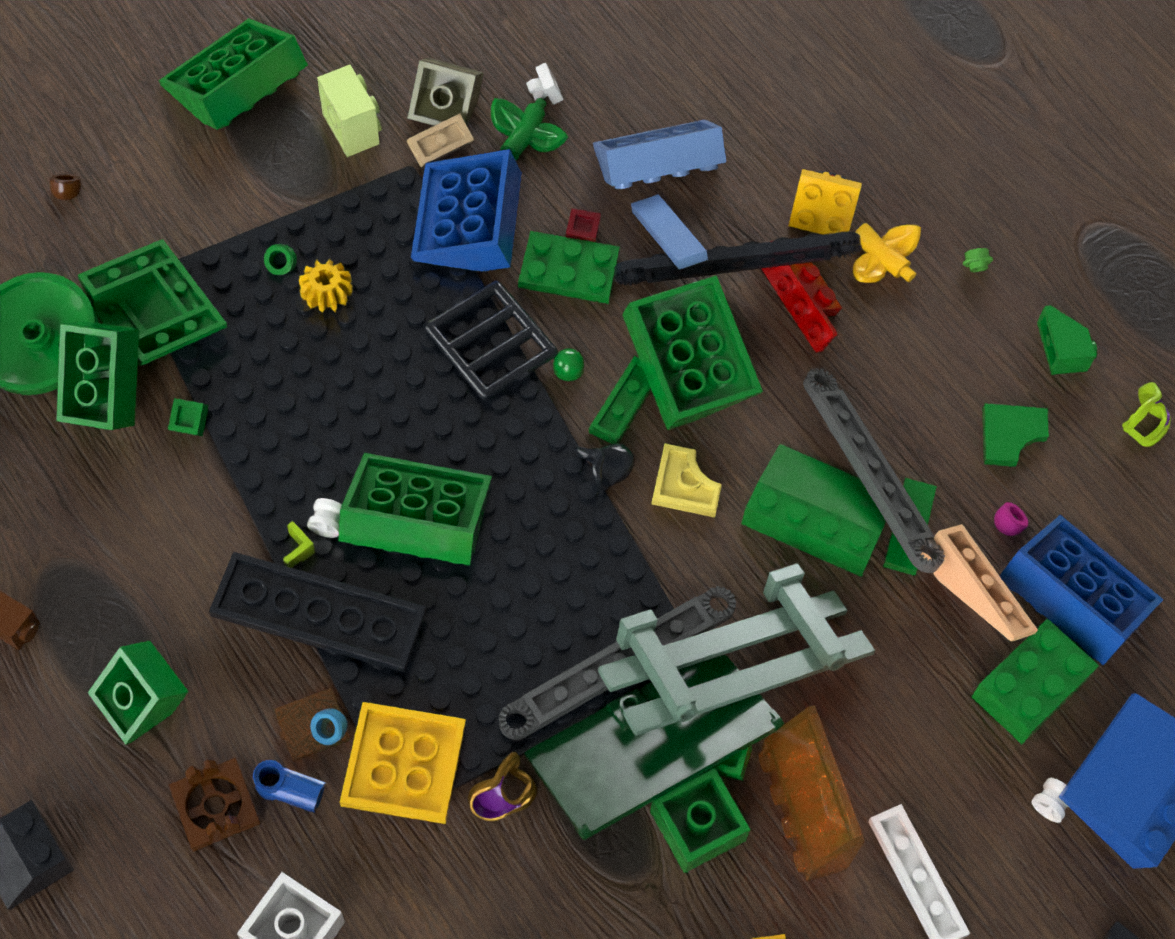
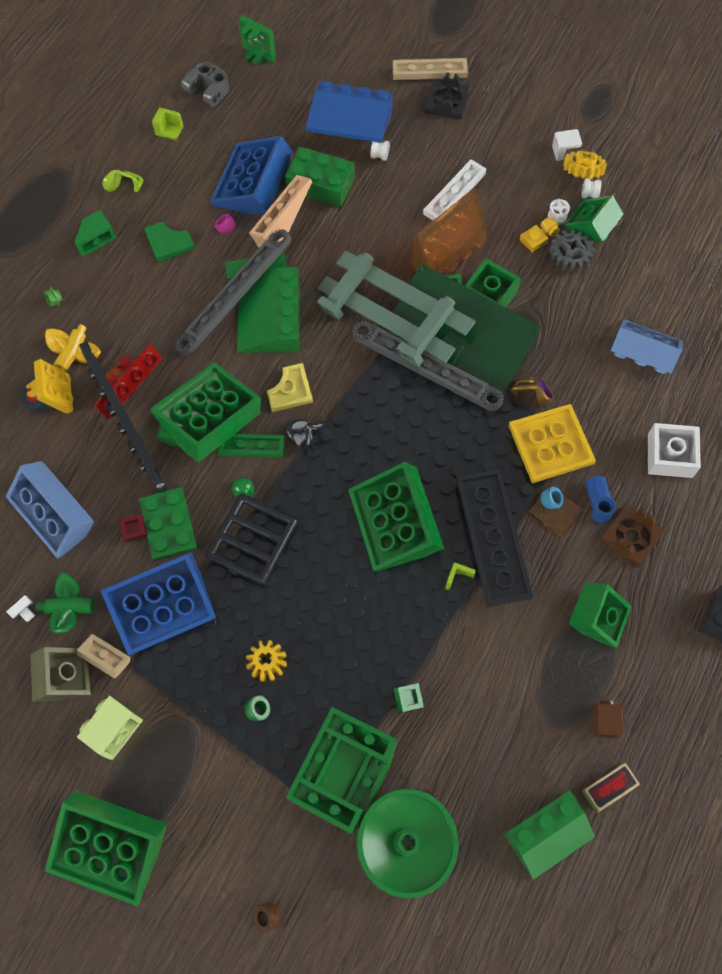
camera: 110 degrees left, 5 degrees up
(97, 375) = (422, 763): green brick -> none
(326, 518) = (432, 564): white wheel -> none
(669, 232) = (118, 466): medium blue tile -> none

